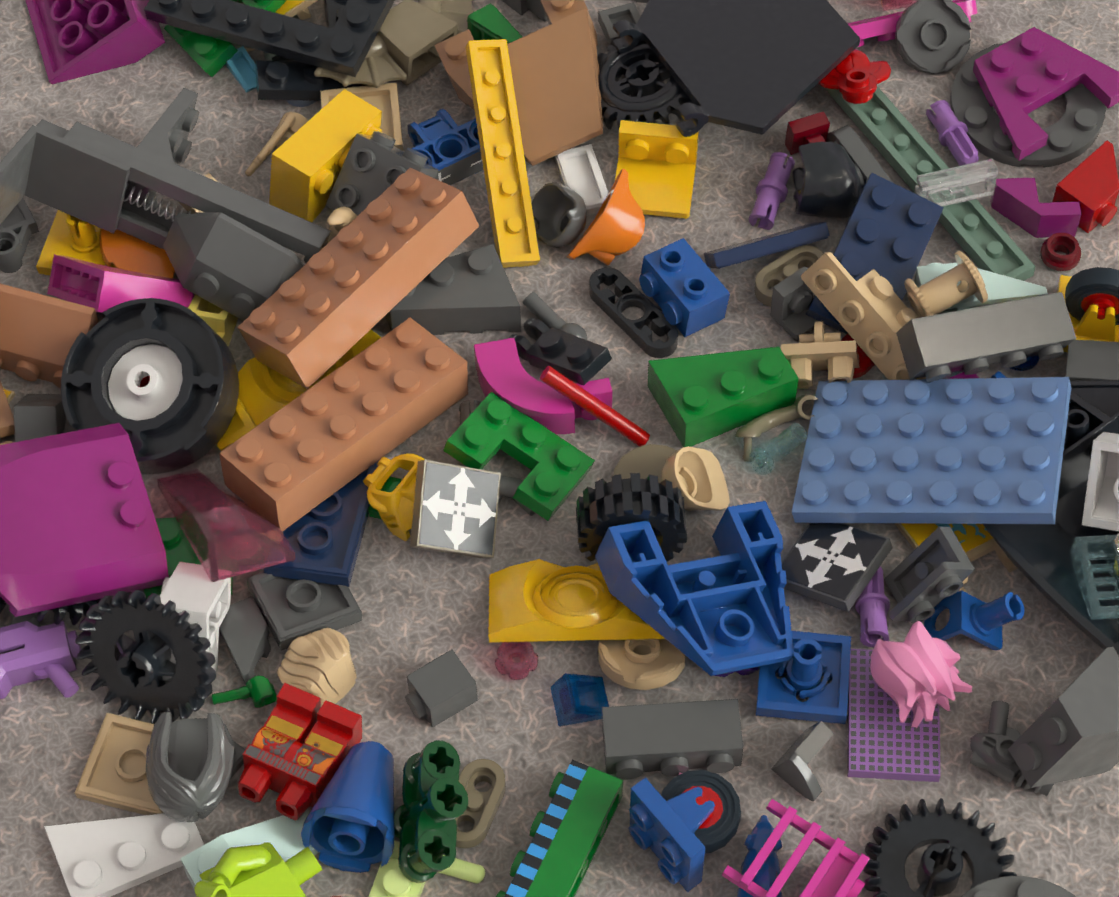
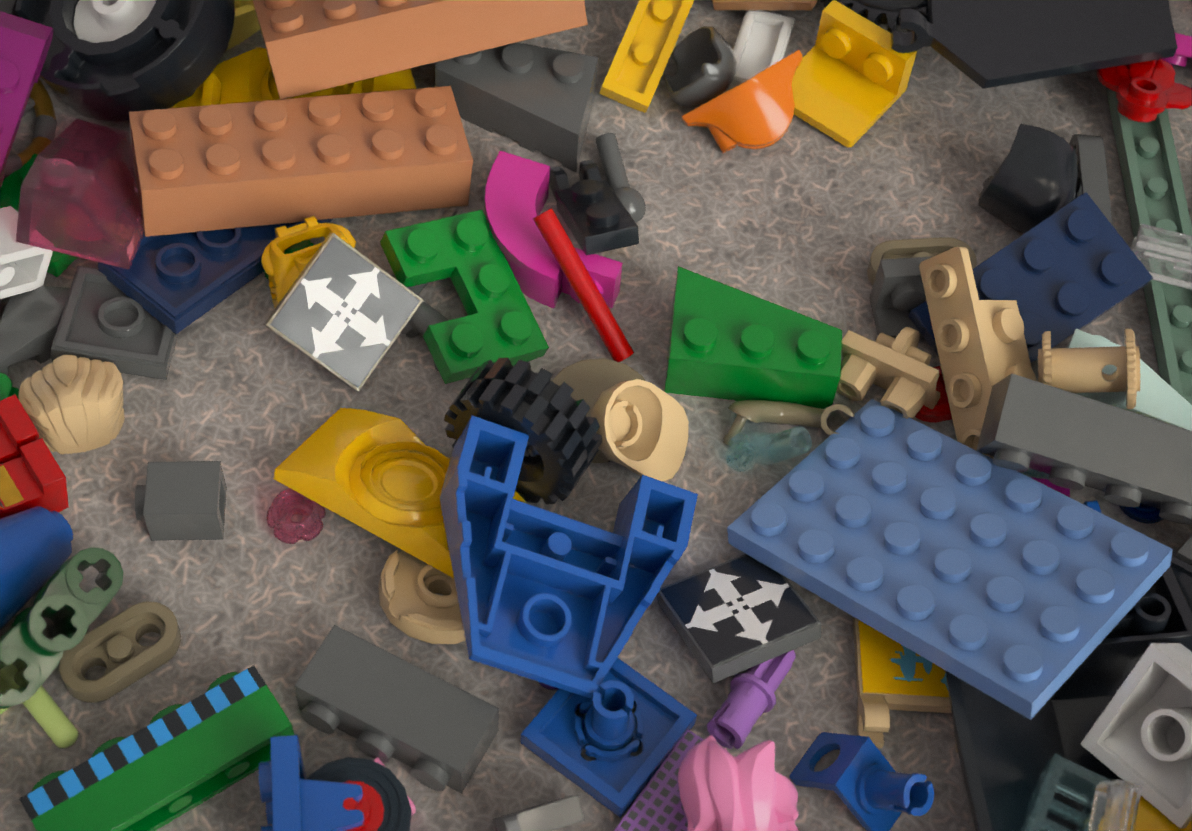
camera: 25 degrees right, 0 degrees up
(578, 698) = (334, 599): clear blue slope -> none
(628, 297) = (719, 196): black beam -> none
(683, 287) = (783, 213): blue brick -> none
(767, 245) = (917, 219): dark blue tile -> none
(771, 190) = (965, 165): medium lavender pin -> none
(806, 130) = (1053, 116): dark red tile -> none
(928, 576) = (838, 696): dark grey bracket -> none

